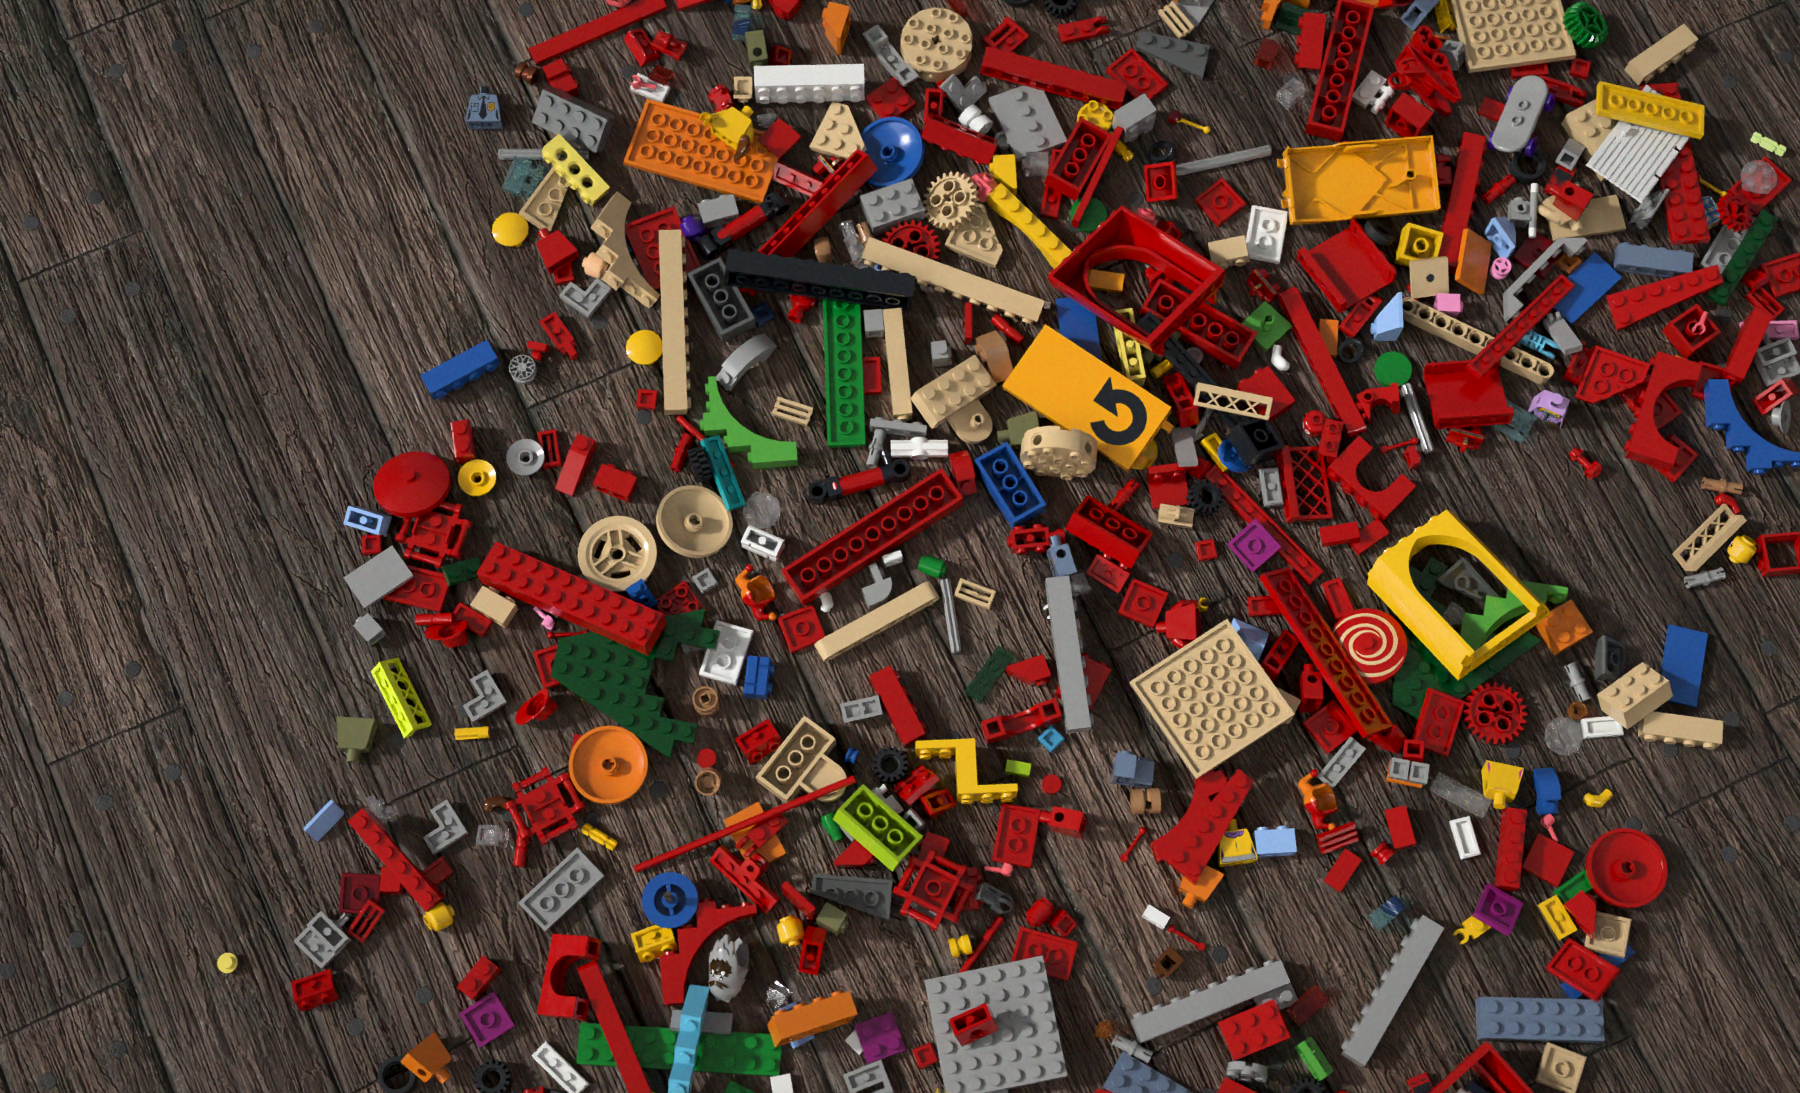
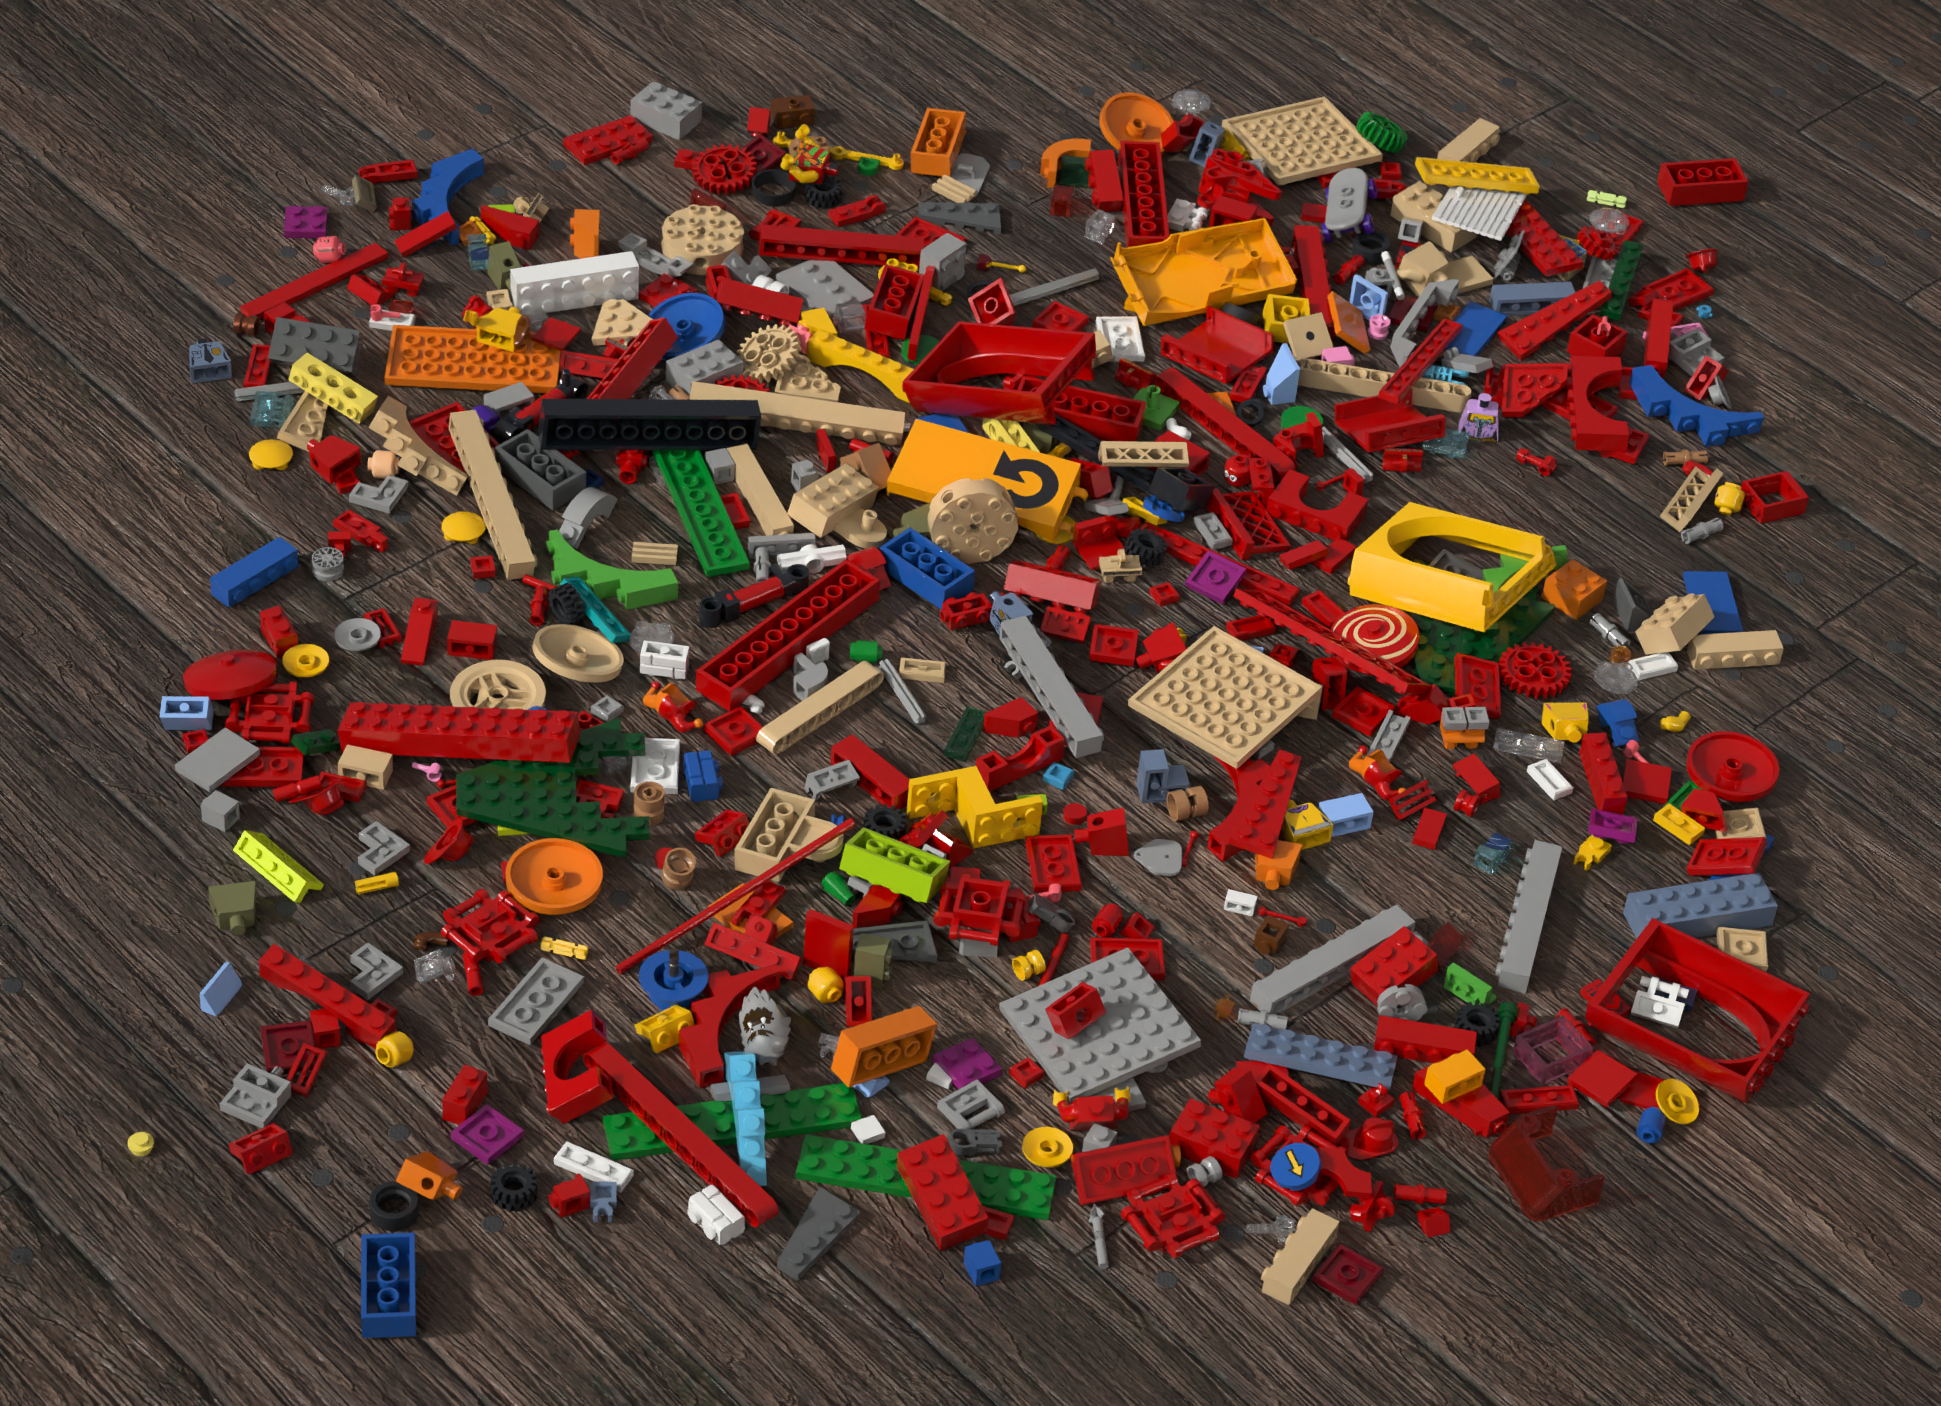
camera: 20 degrees left, 30 degrees down
(524, 127) = (258, 367): none -> red tile
(670, 680) = (609, 797): none -> red plate
(1100, 851) = (1154, 857): none -> light grey piece
(1570, 199) = (1428, 246): red torso -> none

